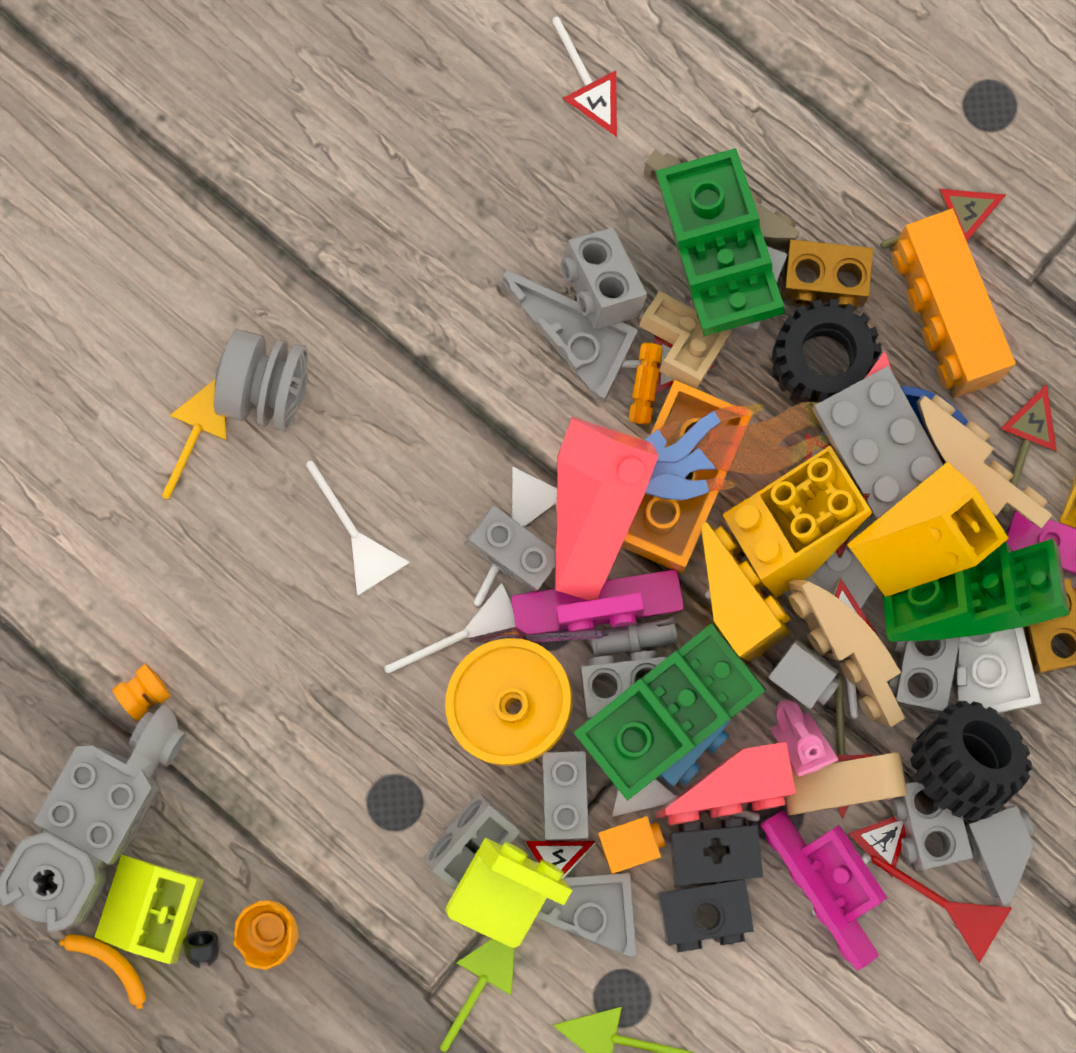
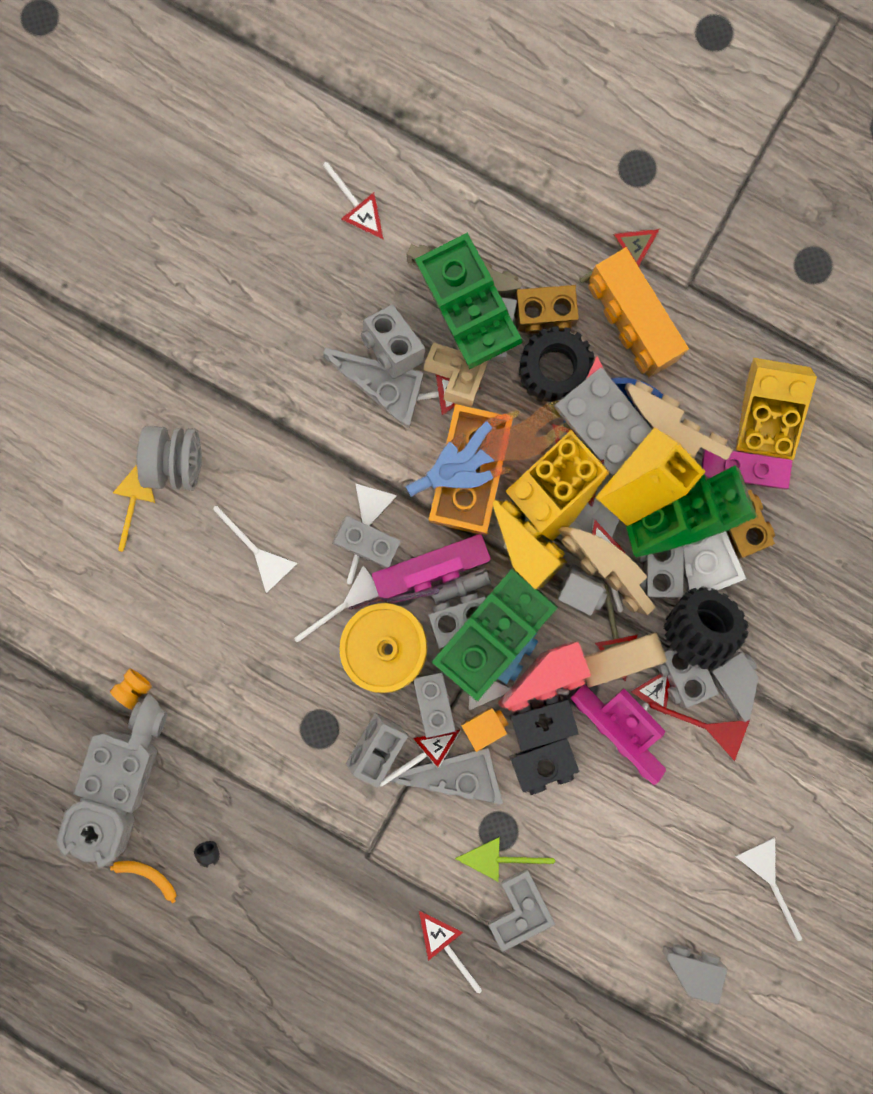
camera: 10 degrees left, 5 degrees up
(148, 909) = (166, 836): neon yellow slope -> none
(265, 934) = (248, 837): light orange hair -> none
(493, 964) = (406, 825): lime piece -> none
(505, 892) = (405, 779): neon yellow bracket -> none
(597, 497) = (417, 498): coral wedge -> none
(645, 383) = (435, 409): light orange axle -> none
(805, 741) = (589, 634): bright pink hinge -> none
(1033, 425) = (705, 386): piece -> none

